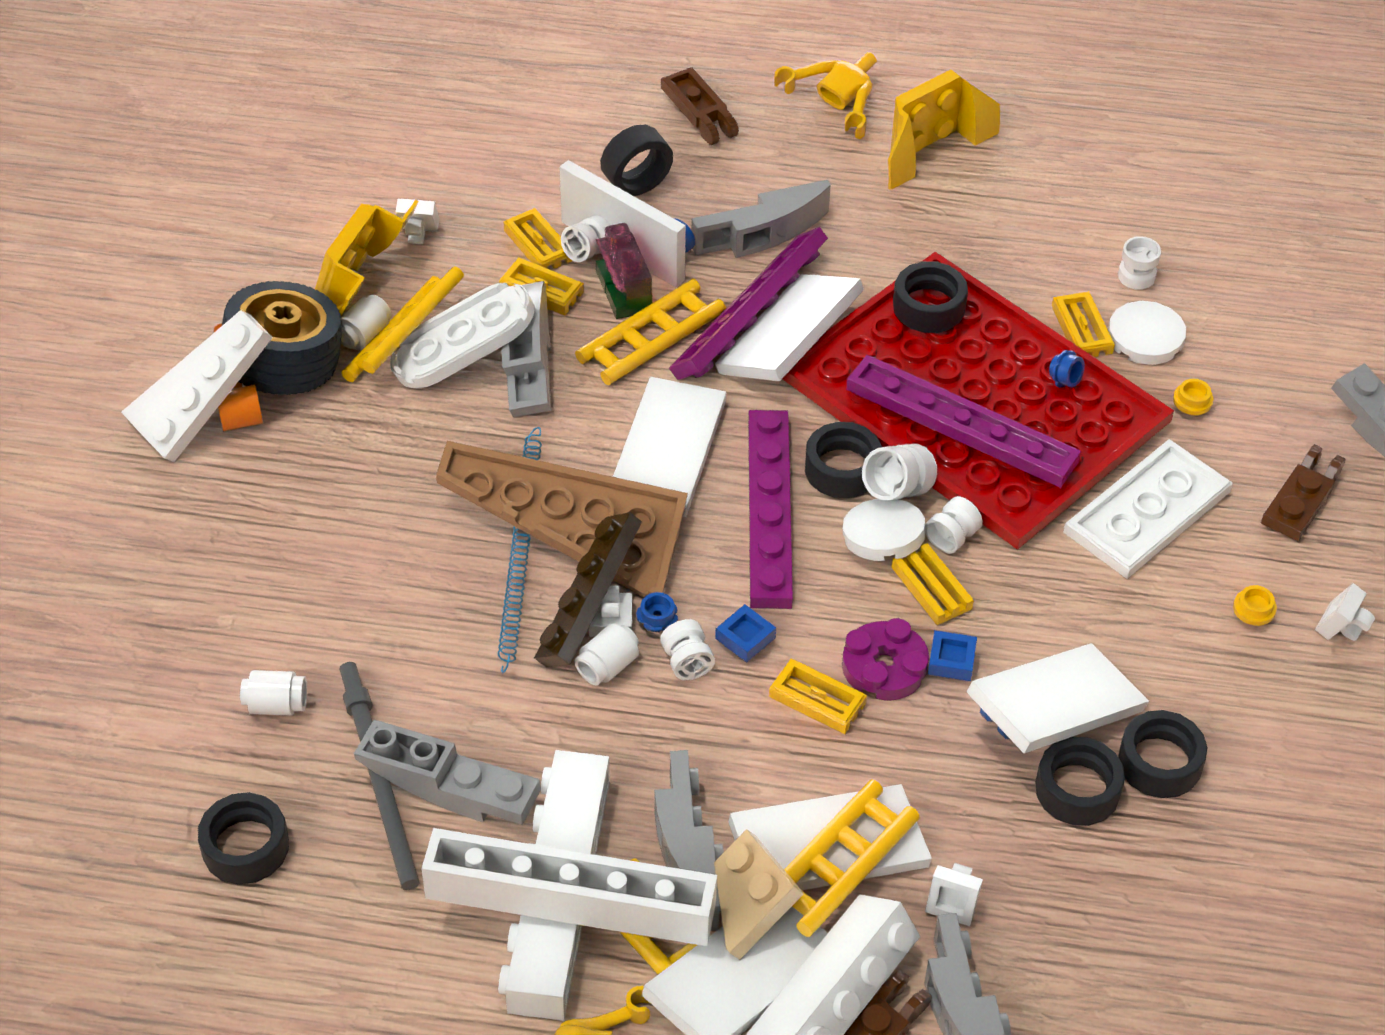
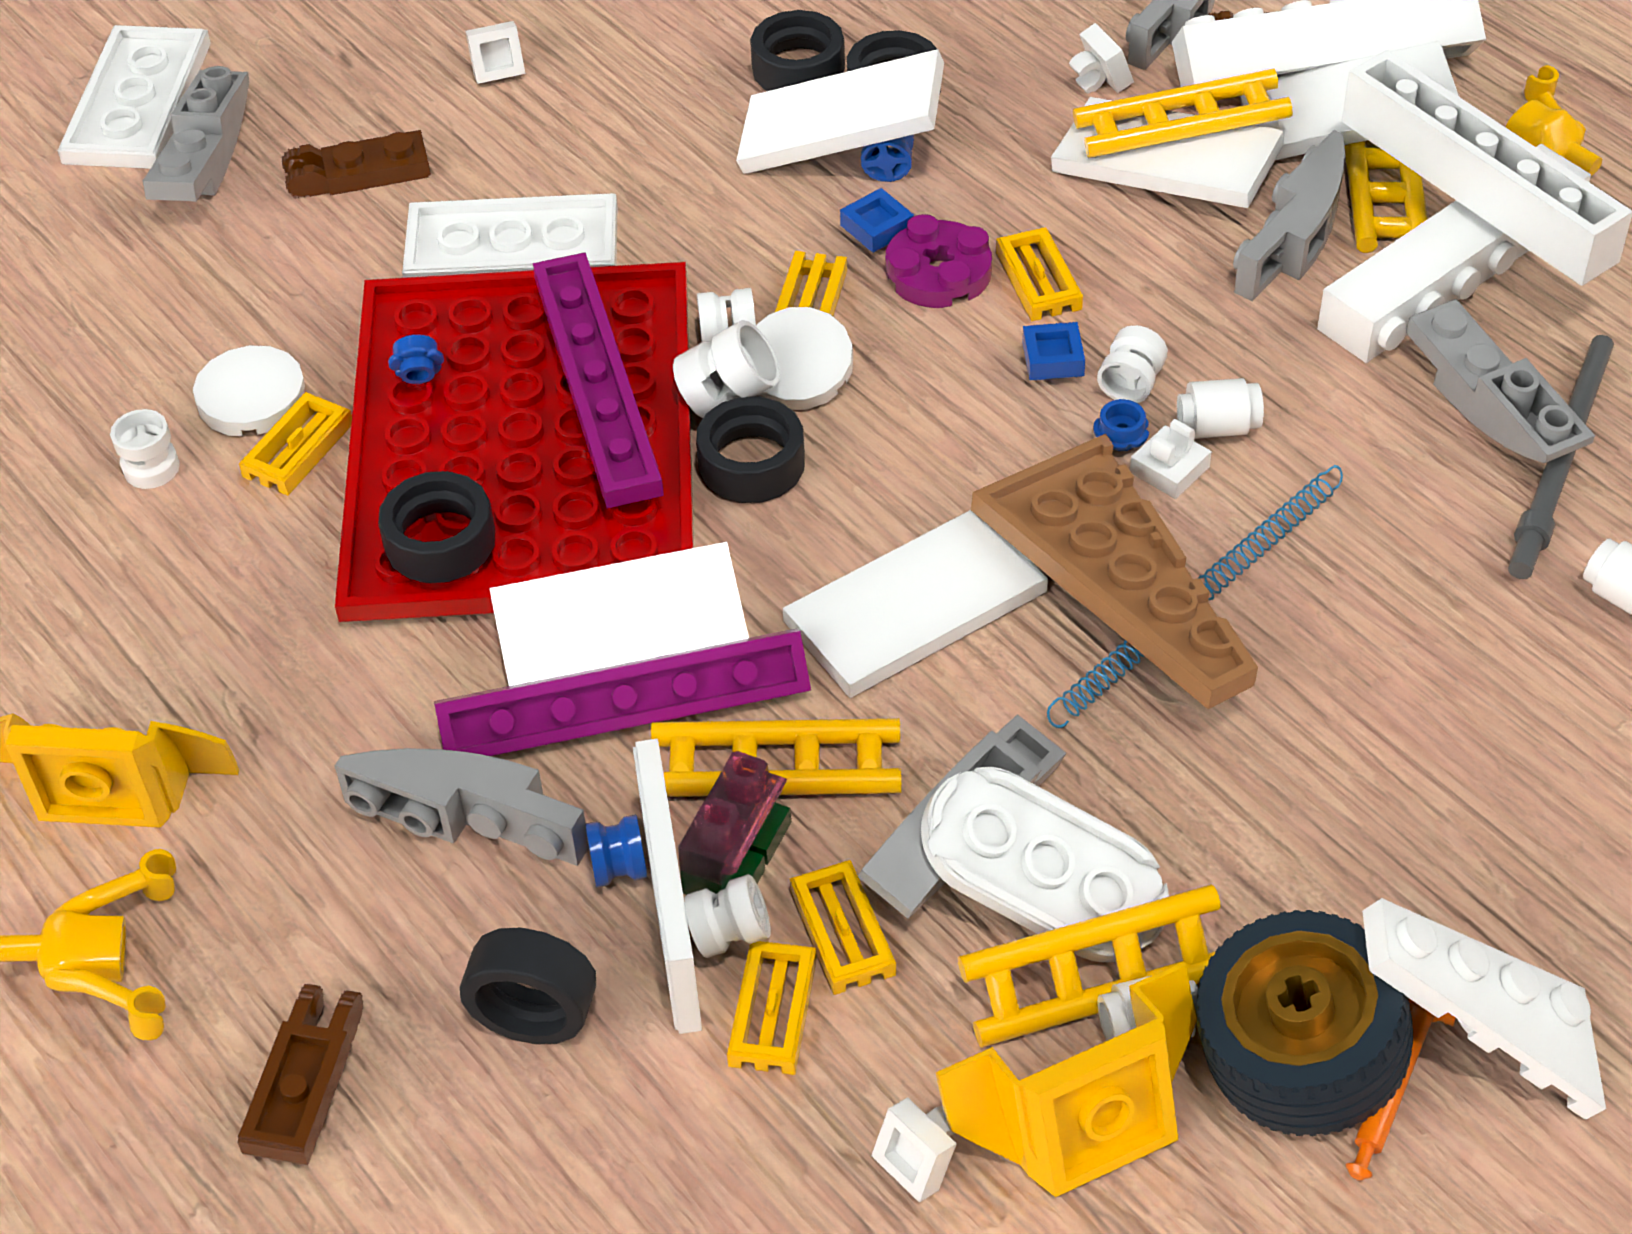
camera: 135 degrees left, 0 degrees up
(584, 597) = (1188, 454): dark brown plate -> none
(751, 892) = (1297, 104): tan wing -> none
(769, 510) = (875, 469): magenta plate -> none
(1193, 397) = (315, 295): yellow plate -> none
(1255, 605) = (550, 107): yellow plate -> none

